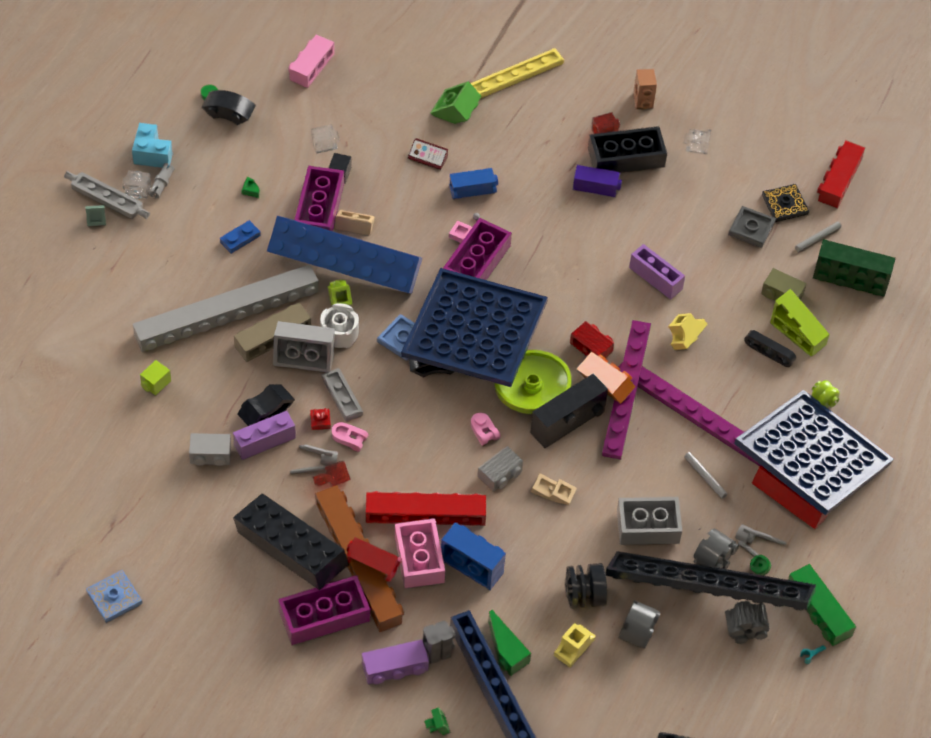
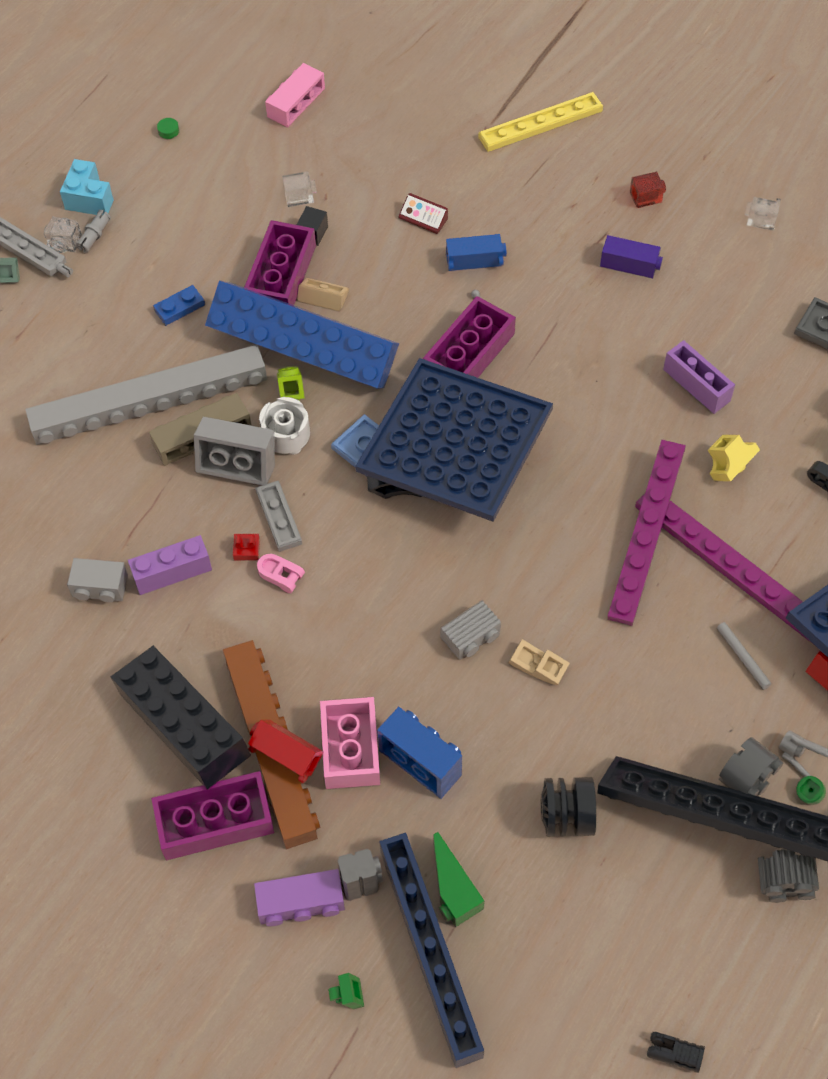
camera: 10 degrees right, 5 degrees up
(155, 377) = (43, 480): lime brick -> none
(228, 106) = (186, 144): black brick -> none
(250, 188) = (200, 245): green tile -> none
(268, 403) = (179, 524): black brick -> none
(327, 458) = (248, 600): light grey plant -> none
(335, 475) = (254, 623): clear red plate -> none
(416, 506) = (366, 678): red brick -> none
(457, 103) = (466, 153): bright green slope -> none
(459, 231) = (451, 311): bright pink plate -> none
(482, 423) = (452, 566): bright pink plate -> none
(537, 382) = (532, 519): lime dish -> none
(569, 410) = (568, 556): black brick -> none
(574, 644) = (546, 889): light yellow brick -> none
(589, 339) = (607, 465): red brick -> none
(617, 382) = (622, 514): brick -> none
(628, 150) = (674, 219): black brick -> none
(639, 624) = (636, 868): dark grey brick -> none
(645, 88) = (700, 144): nougat brick -> none
(649, 520) = (663, 717): light grey brick -> none

